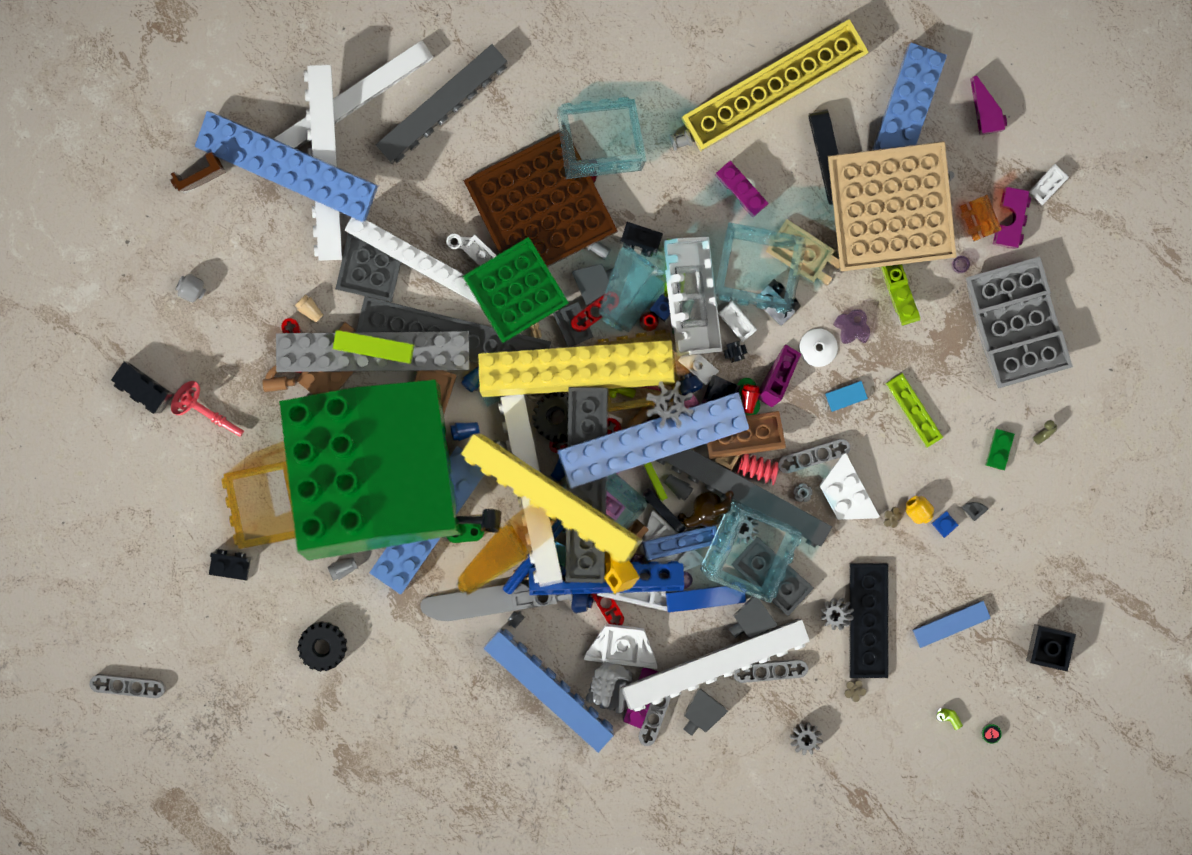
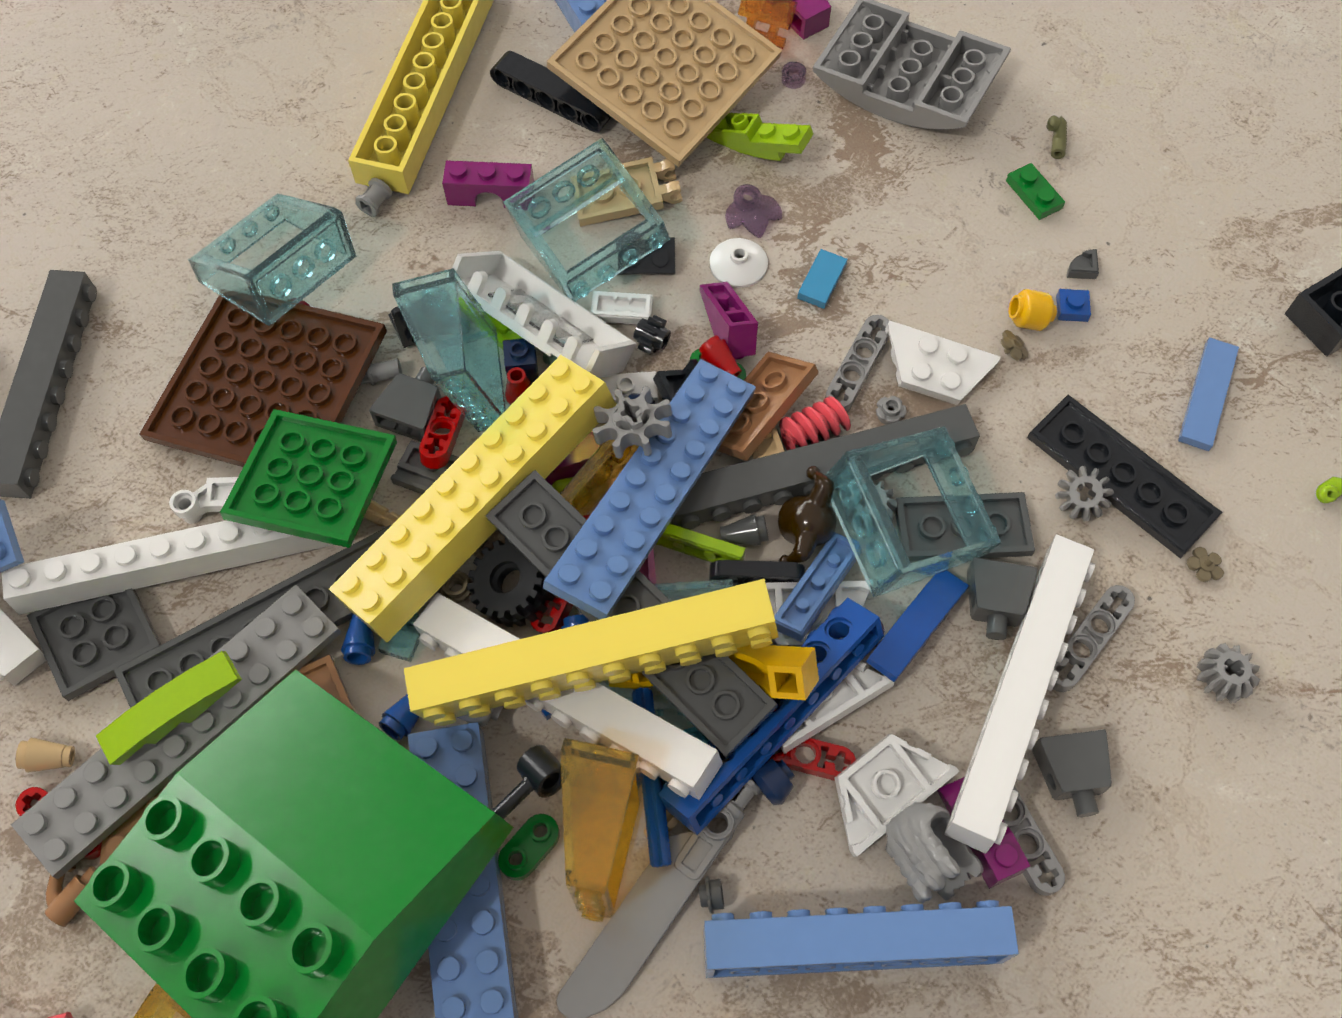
camera: 50 degrees left, 25 degrees down
(914, 410) = (907, 231): lime tile -> none

